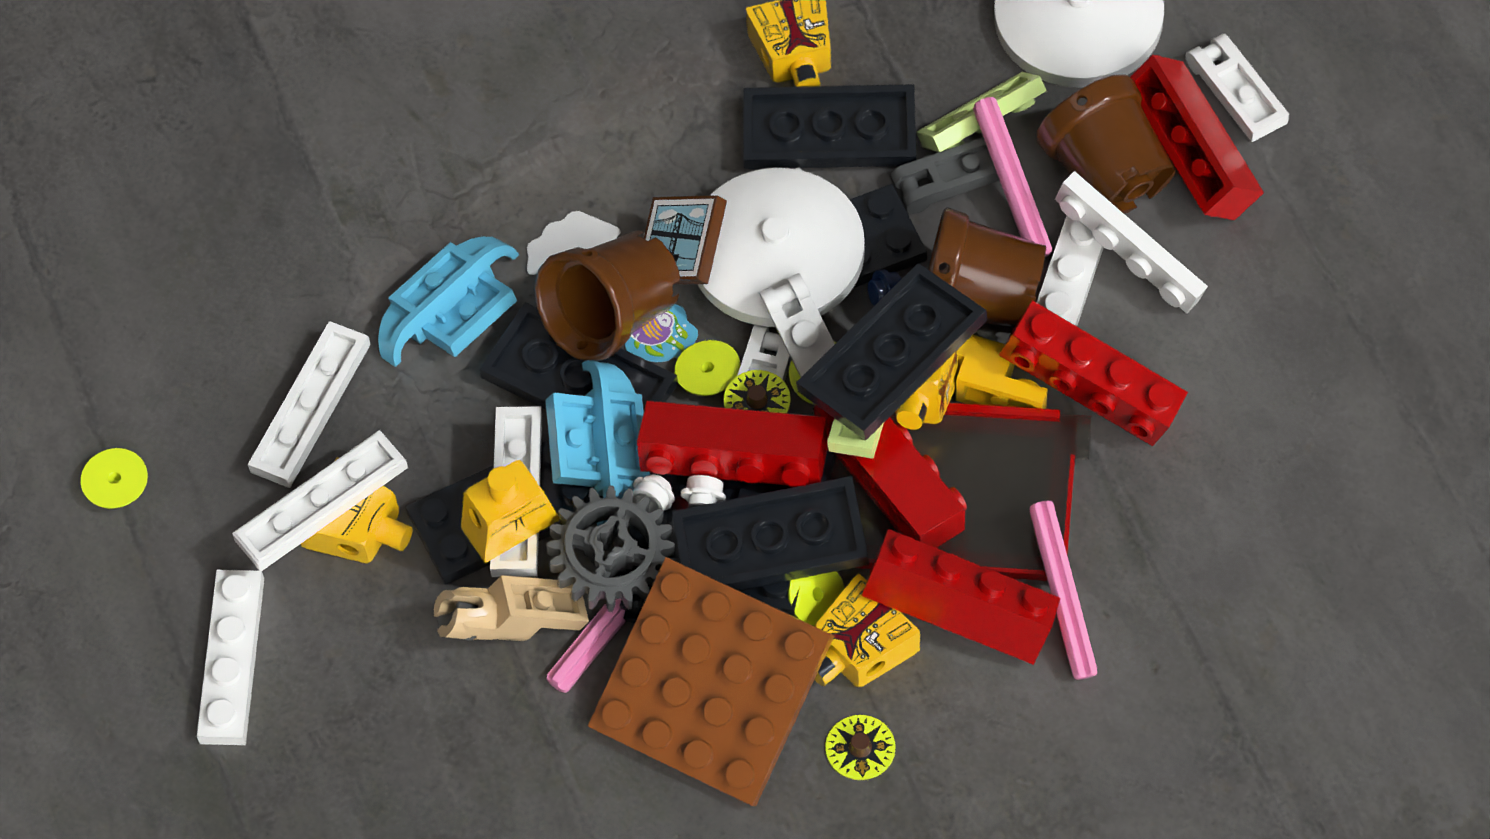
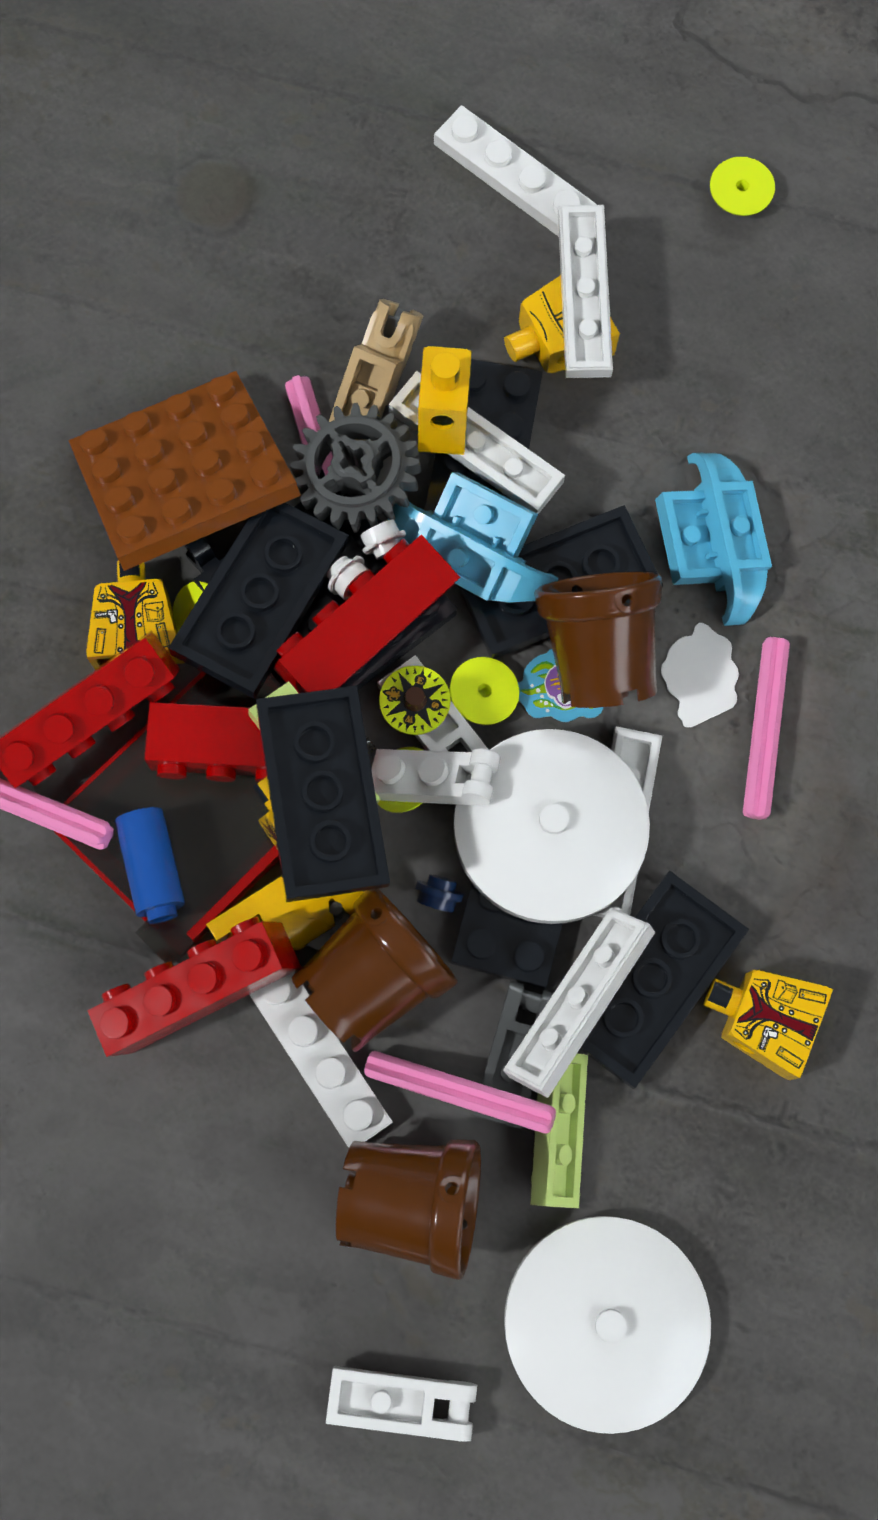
camera: 120 degrees right, 15 degrees up
(309, 404) = (698, 364): white plate -> none
(579, 176) = (766, 728): none -> bright pink axle
(689, 231) = (615, 743): tile -> none
(860, 747) = (54, 563): piece -> none
(887, 144) = (579, 1002): none -> white tile
(1033, 468) = (150, 864): none -> blue brick
(1141, 252) = (280, 1141): white plate -> none
(1195, 139) = (369, 1302): red brick -> none

